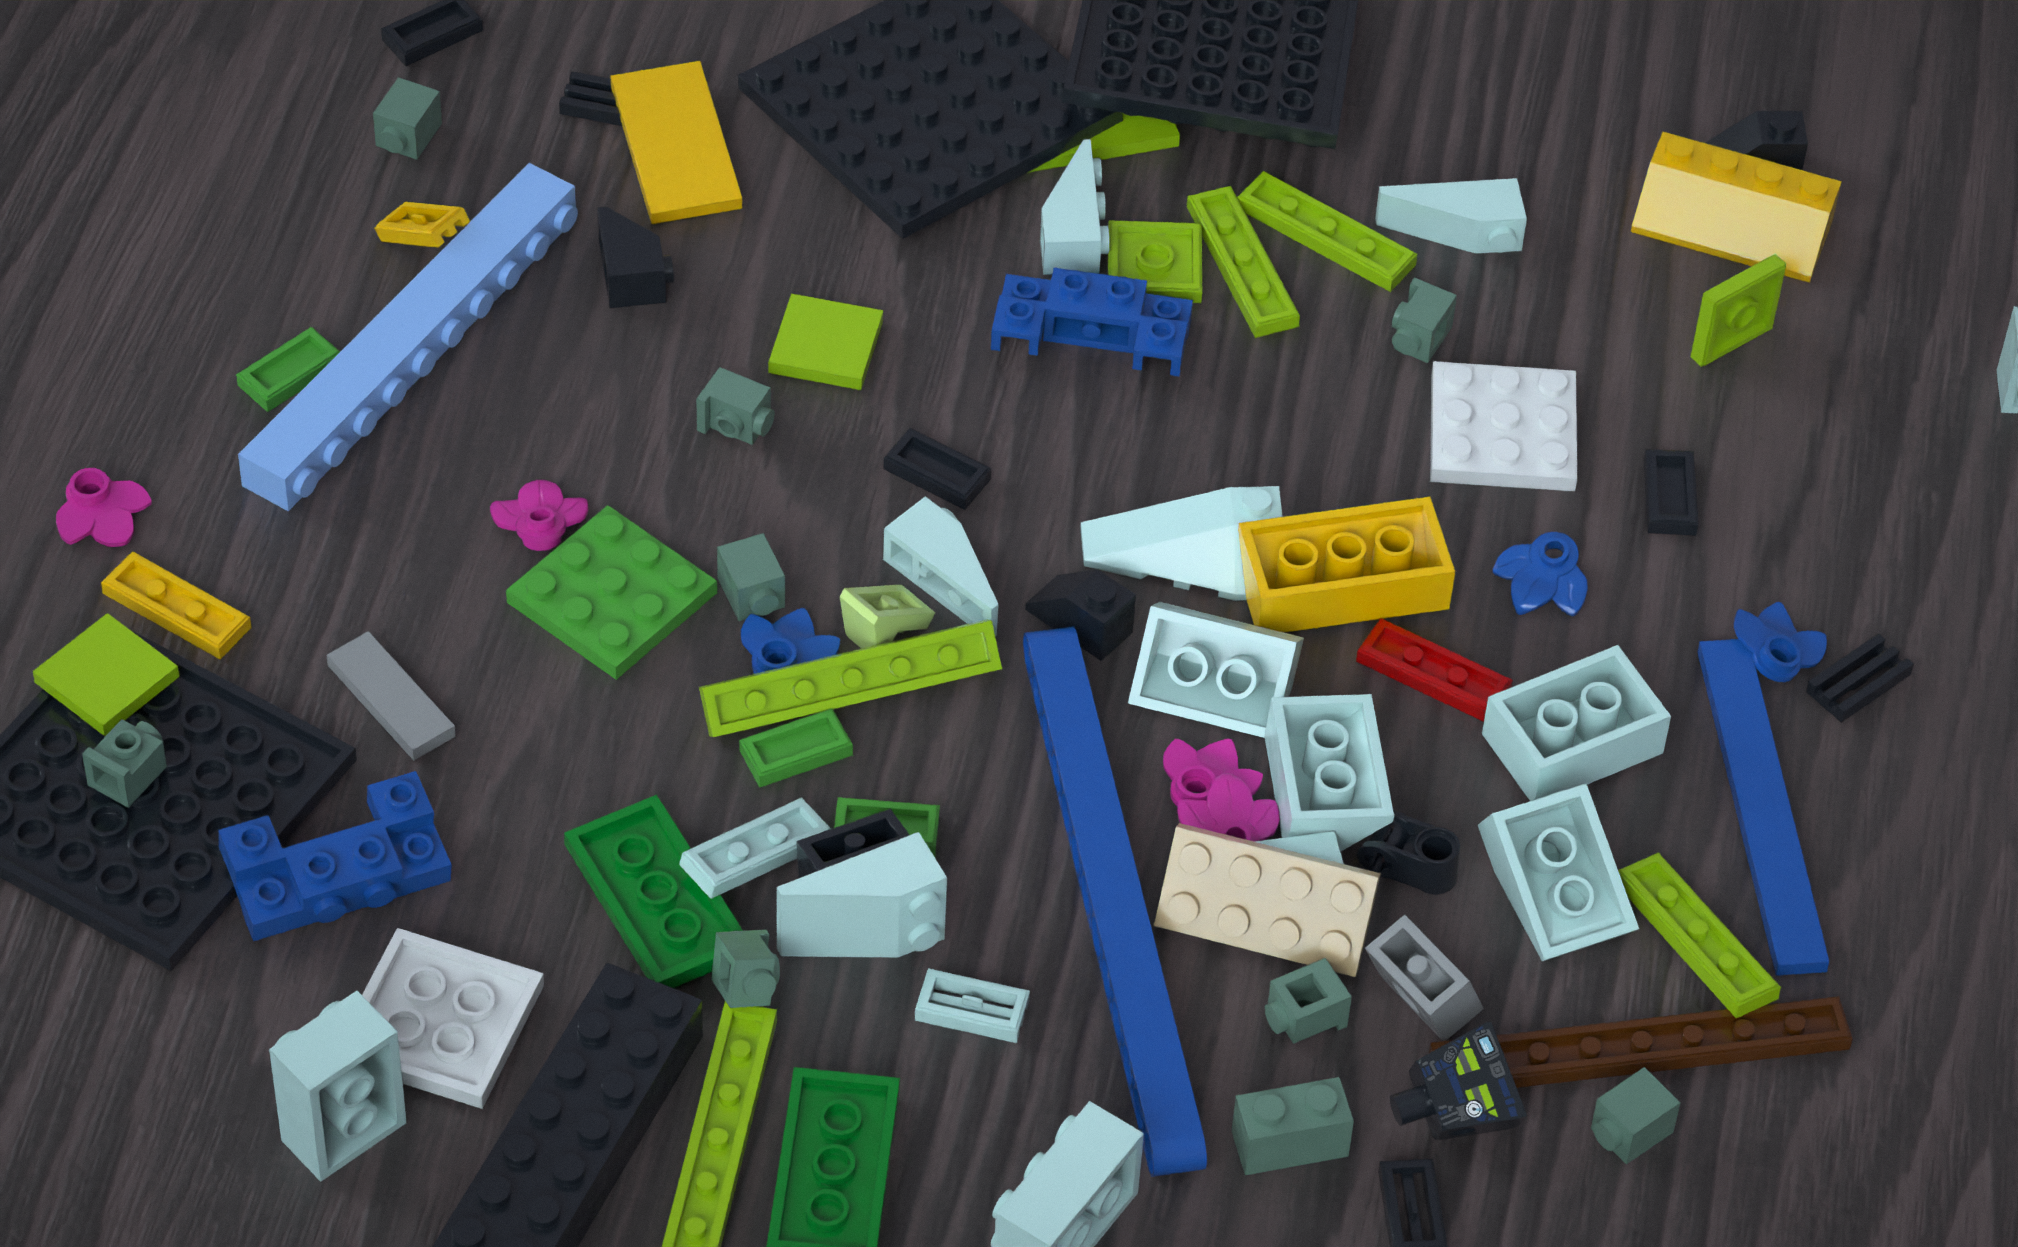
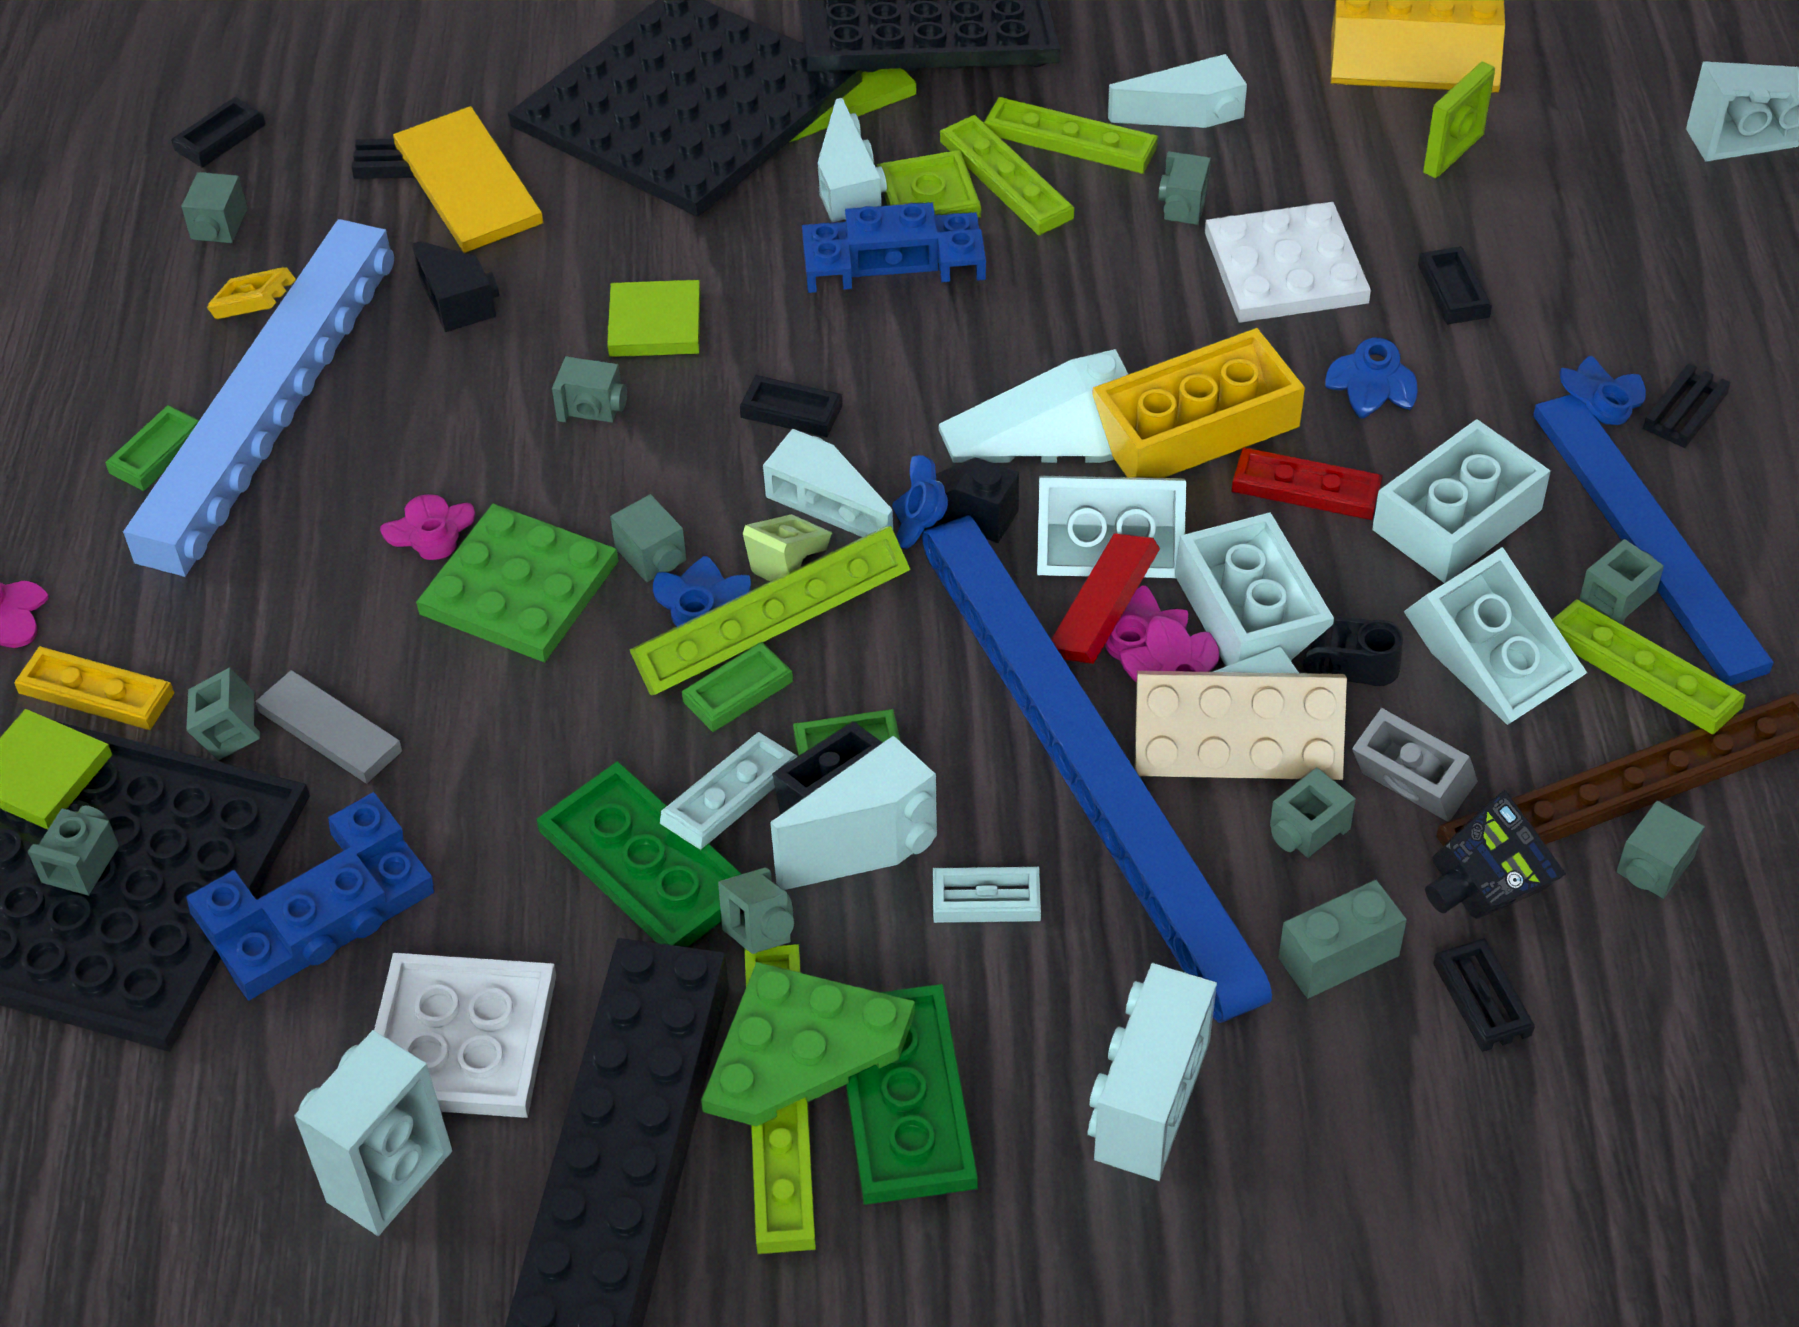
camera: 10 degrees left, 0 degrees up
(292, 660) = (222, 714): none -> sand green brick
(751, 1098) = (800, 1041): none -> bright green plate
(1030, 604) = (922, 503): none -> blue plate
(1180, 742) = (1104, 597): none -> red tile
(1707, 845) = (1621, 581): none -> sand green brick

